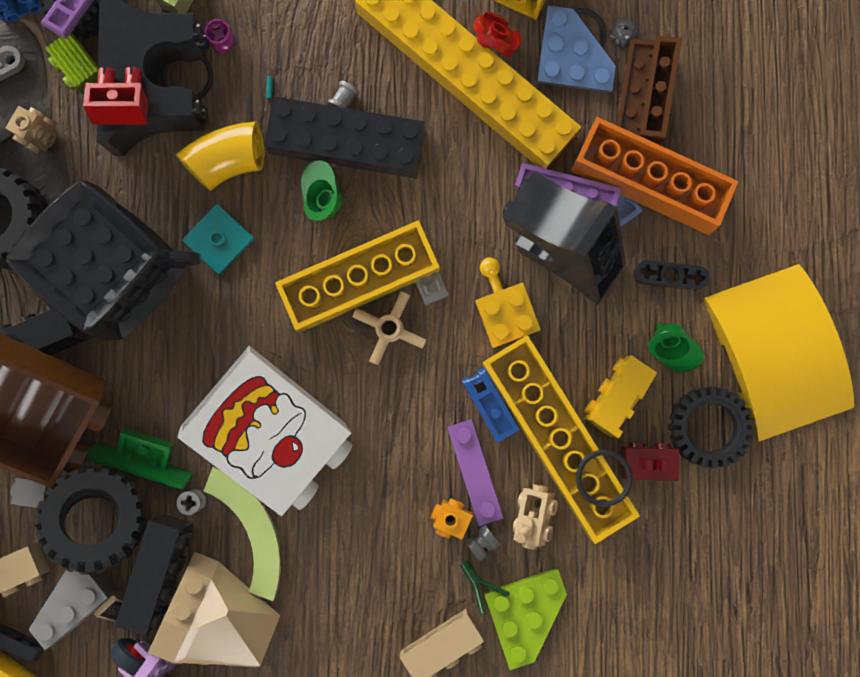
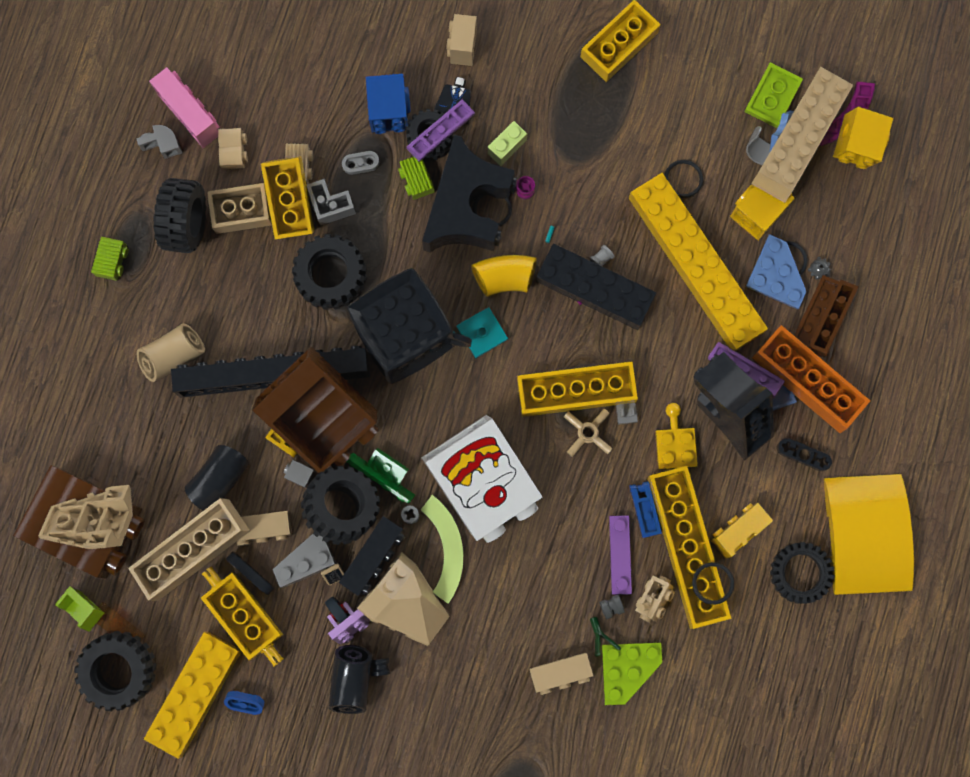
camera: 15 degrees right, 5 degrees down
(35, 133) = (375, 217): tan brick -> none
(116, 102) = (447, 219): red brick -> none
(320, 191) = (566, 320): green piece -> none
(458, 525) = (601, 582): light orange brick -> none
(494, 33) = (725, 244): red plate -> none
(651, 463) = (750, 585): dark red brick -> none
(675, 348) = (791, 508): green piece -> none

